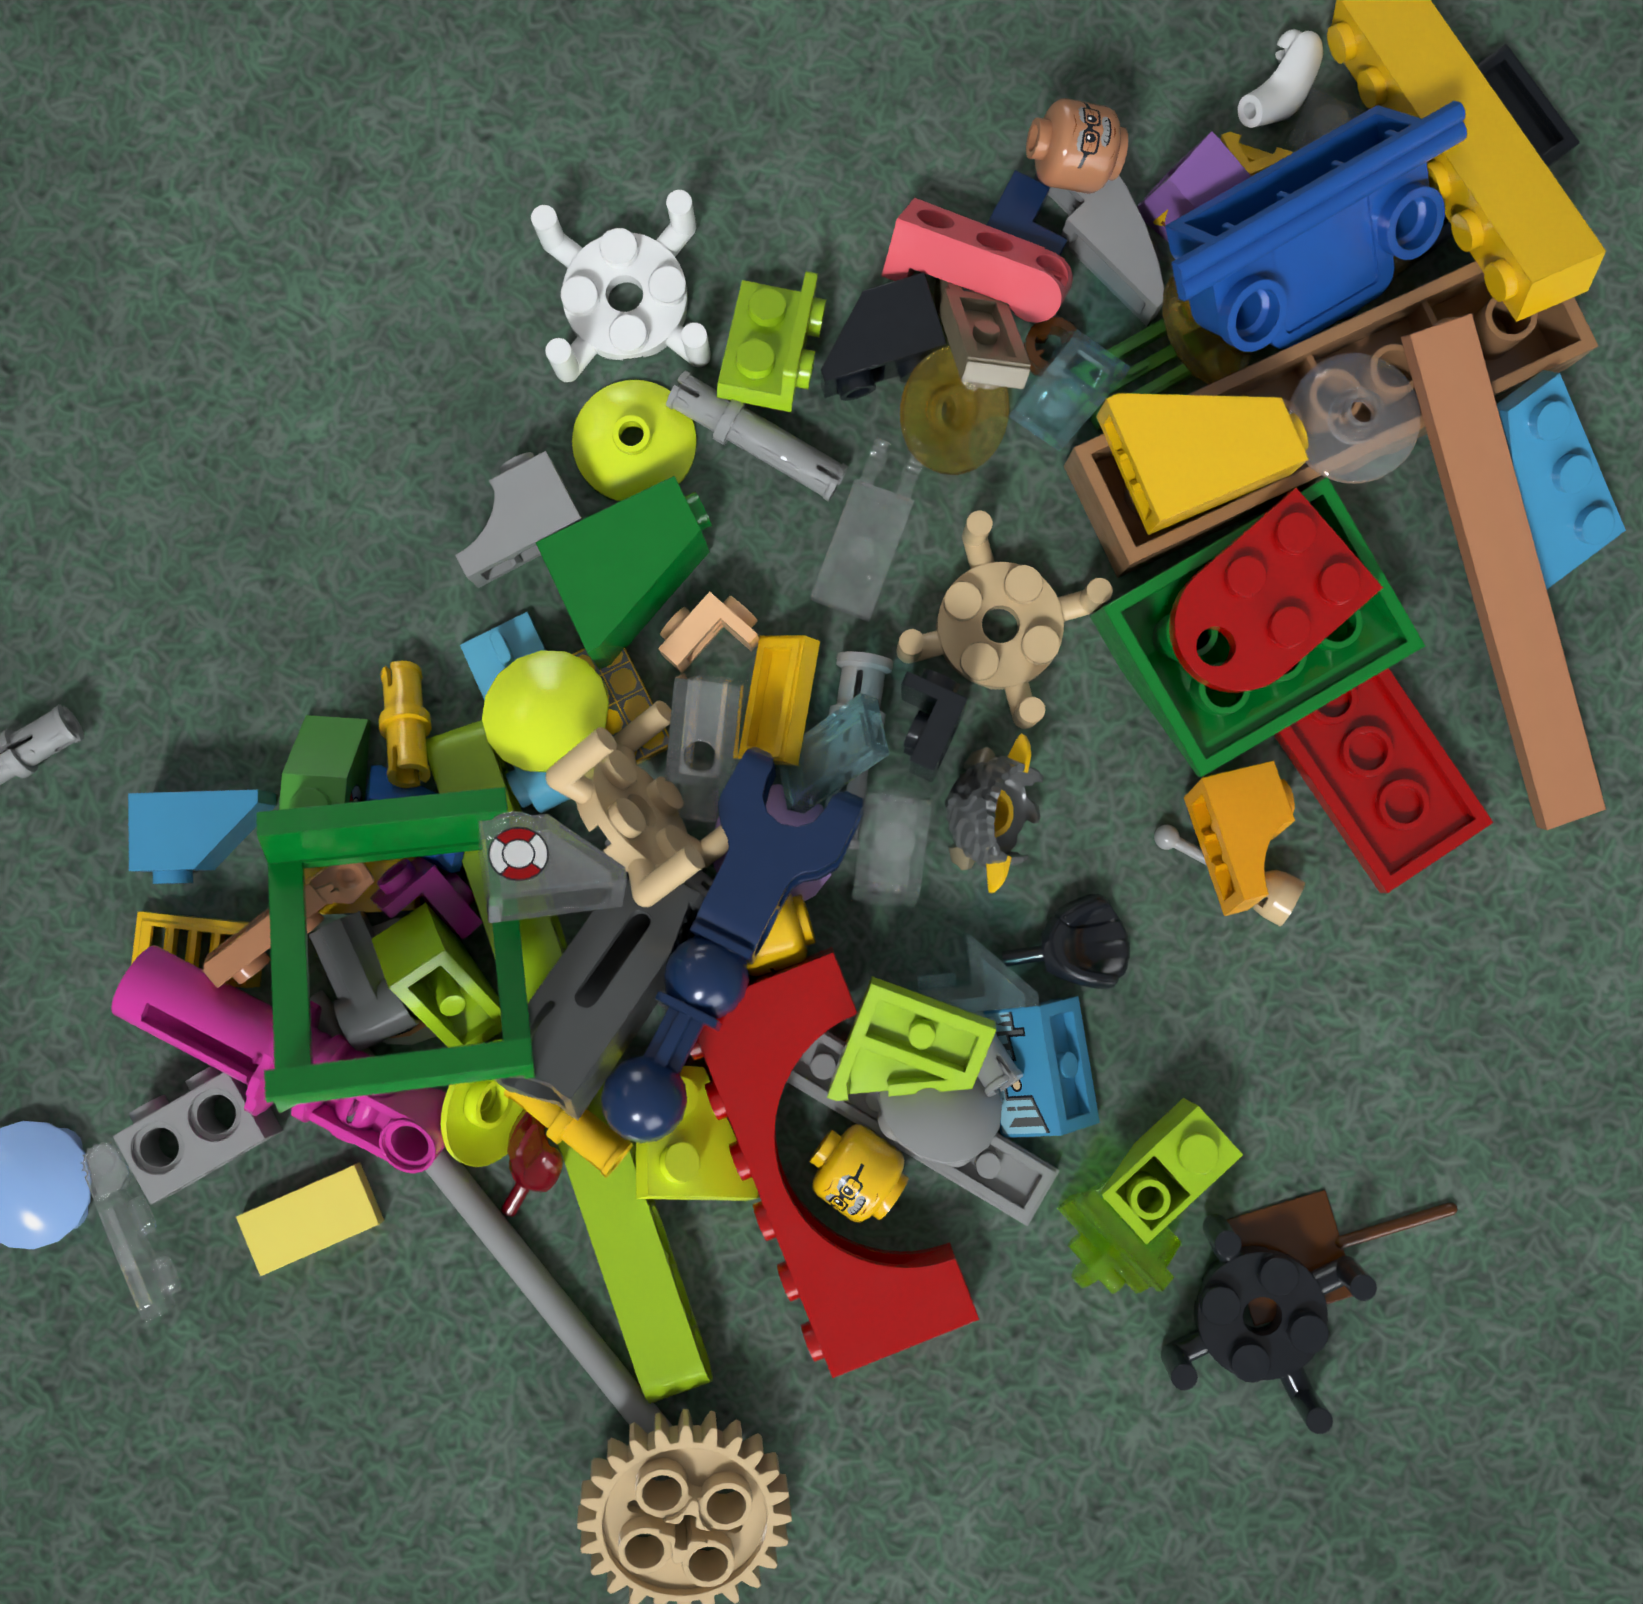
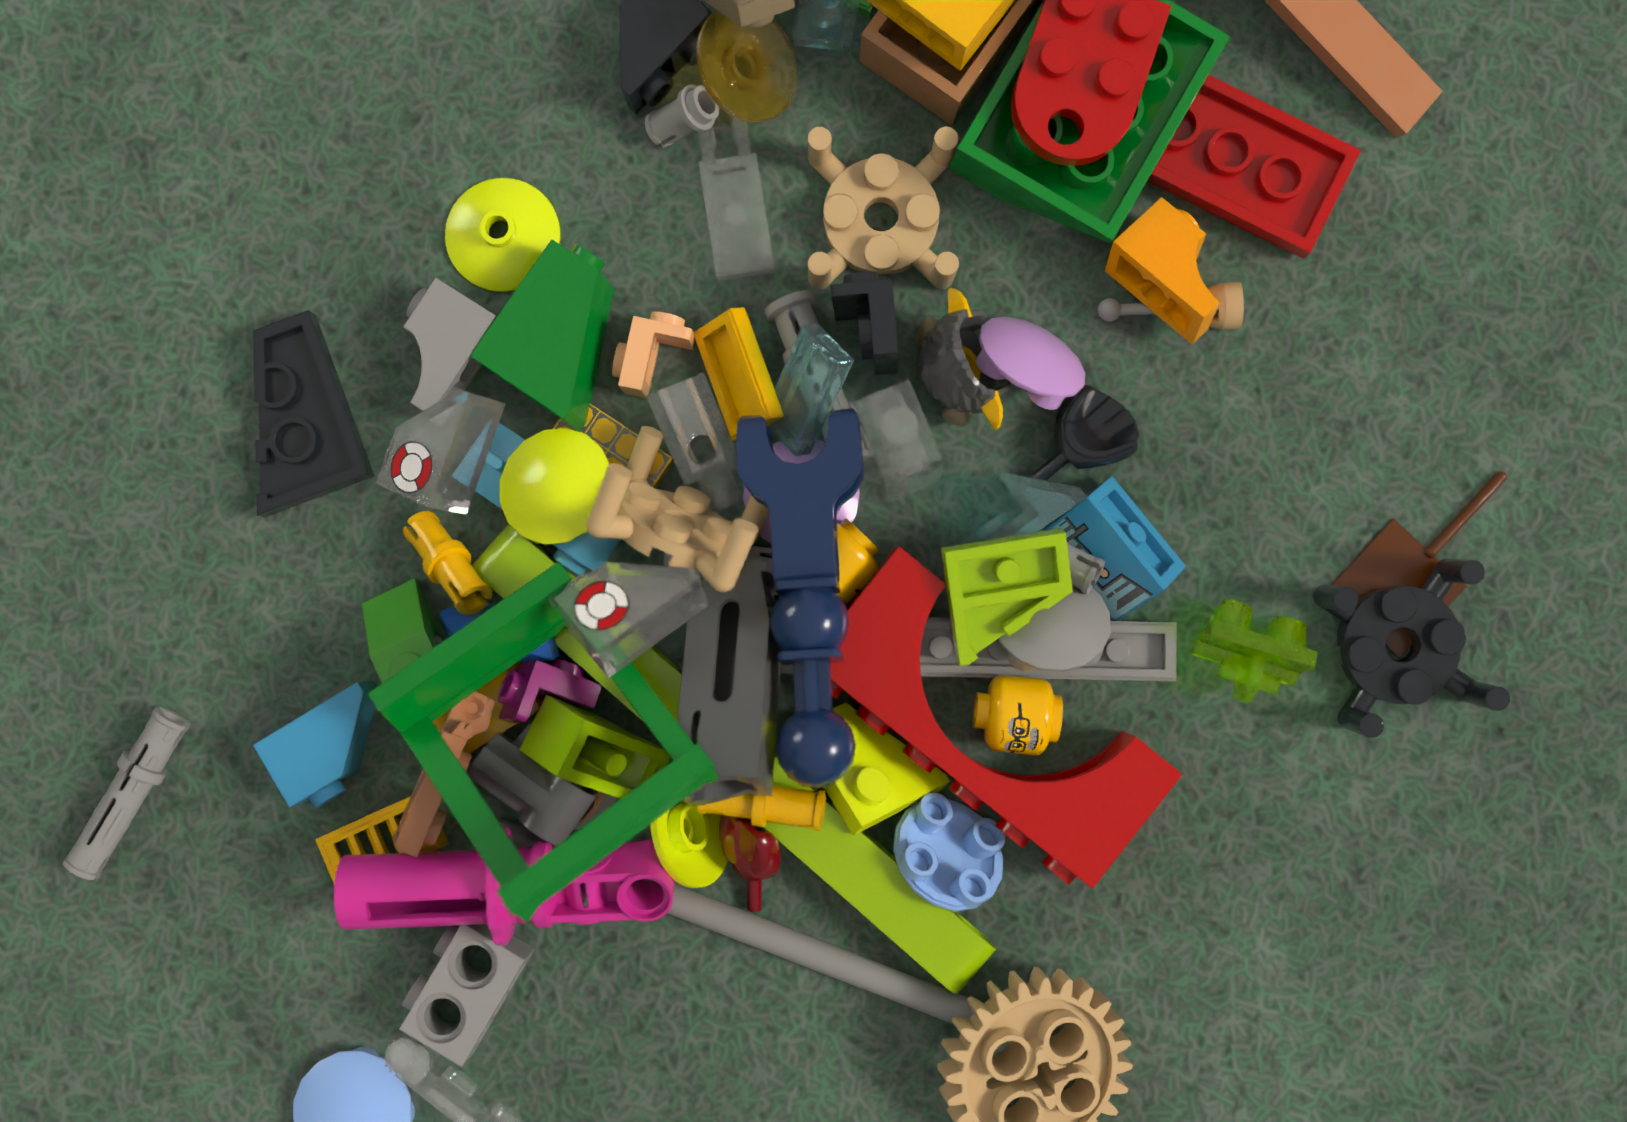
camera: 30 degrees left, 0 degrees up
(310, 1219) = (597, 1006): light yellow tile -> none
(351, 513) = (305, 422): none -> black wing
(458, 618) = (442, 451): none -> clear slope
(616, 260) = (409, 92): white plate -> none
(718, 1266) = (949, 853): none -> light blue dish
(756, 435) = (598, 173): light grey pin -> none
(768, 344) = (565, 92): lime bracket -> none
(870, 427) = (689, 112): none -> light grey pin
(1061, 844) = (1030, 360): none -> lavender dish
(1169, 1169) = (1264, 568): lime slope -> none

